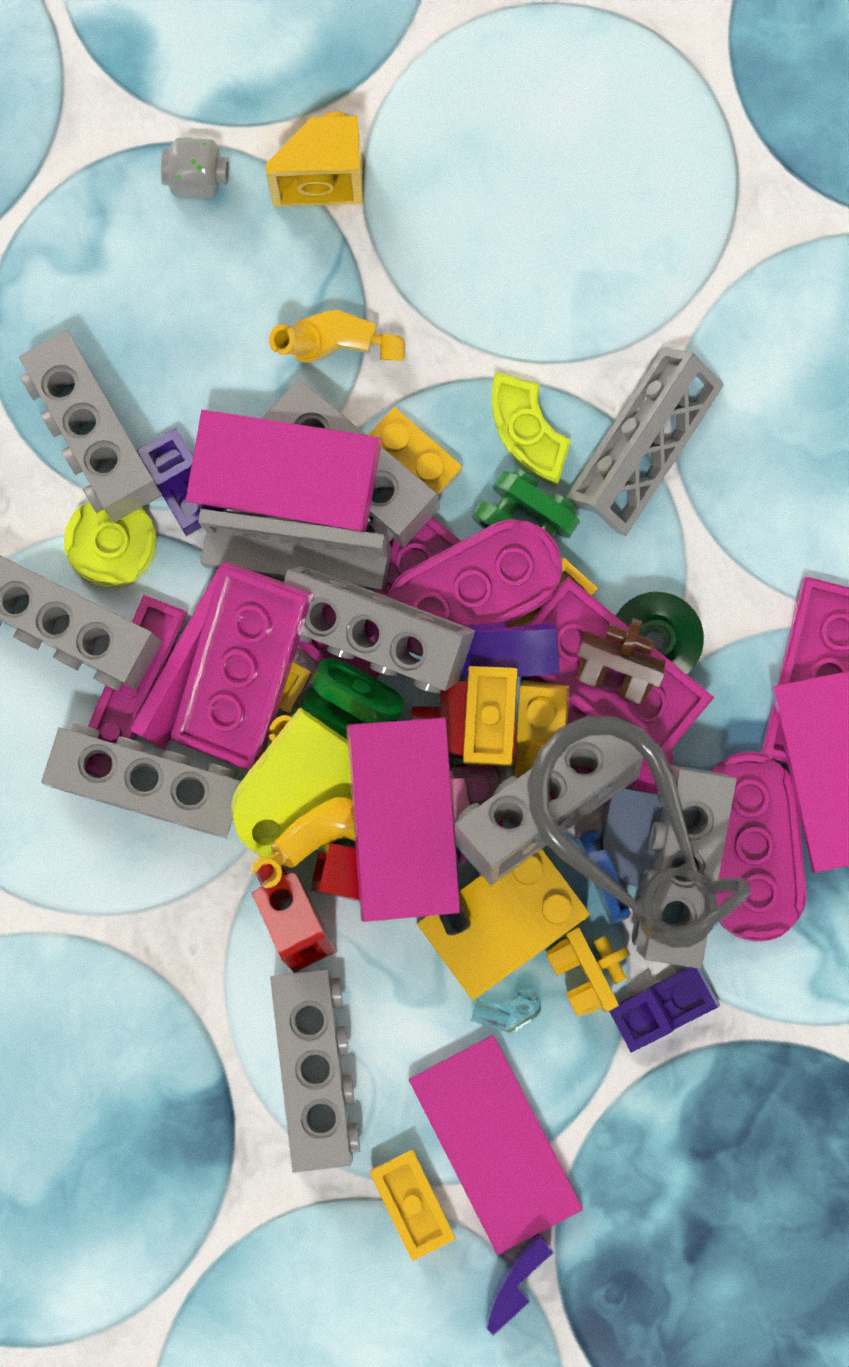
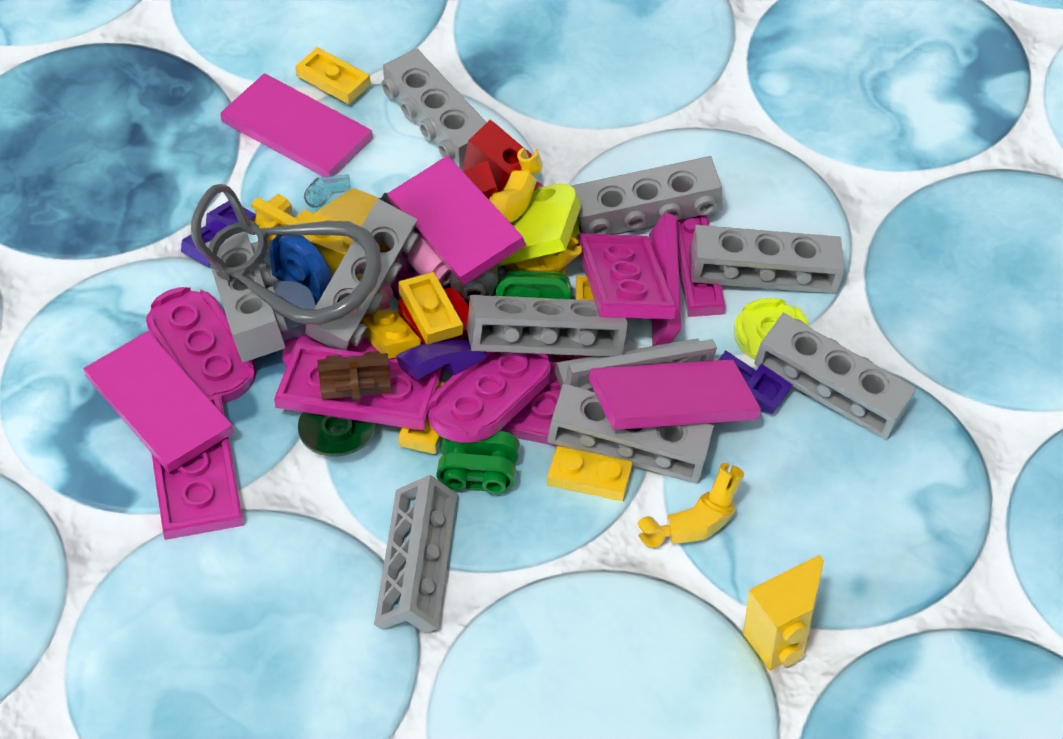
camera: 150 degrees right, 30 degrees down
(194, 168) = (888, 584): light grey head -> none
(509, 1295) = (244, 62): dark purple slope -> none
(525, 431) = (515, 527): neon yellow tile -> none

